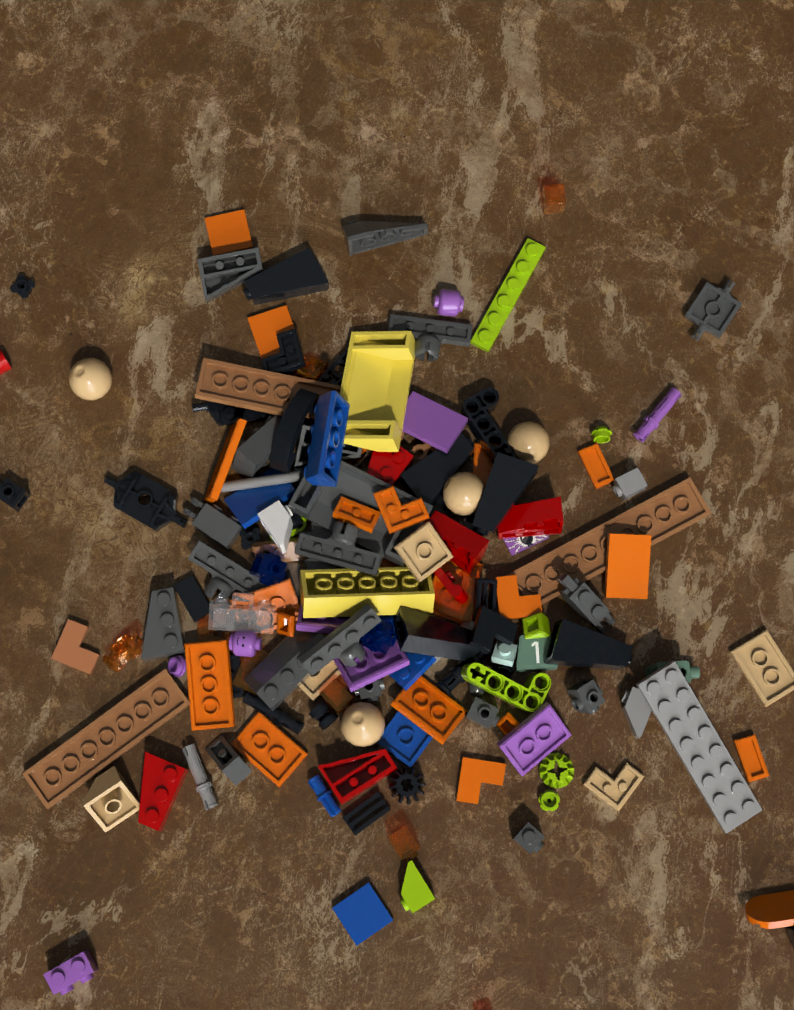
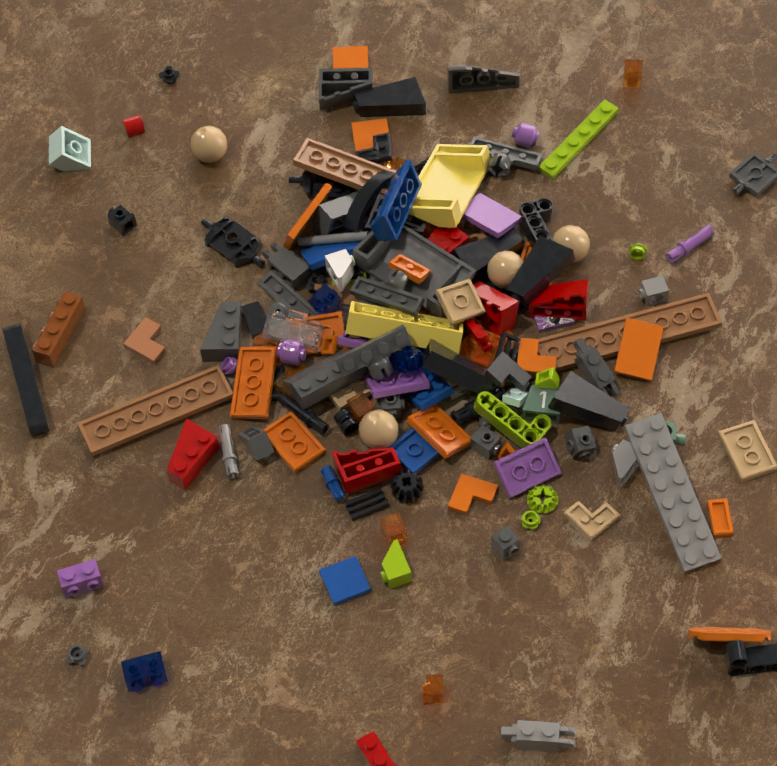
camera: 15 degrees right, 20 degrees down
(110, 799) = (147, 455): tan slope -> none
(122, 651) = (180, 346): clear orange plate -> none
(396, 515) = (446, 272): orange tile -> none
(596, 466) = (627, 275): orange tile -> none

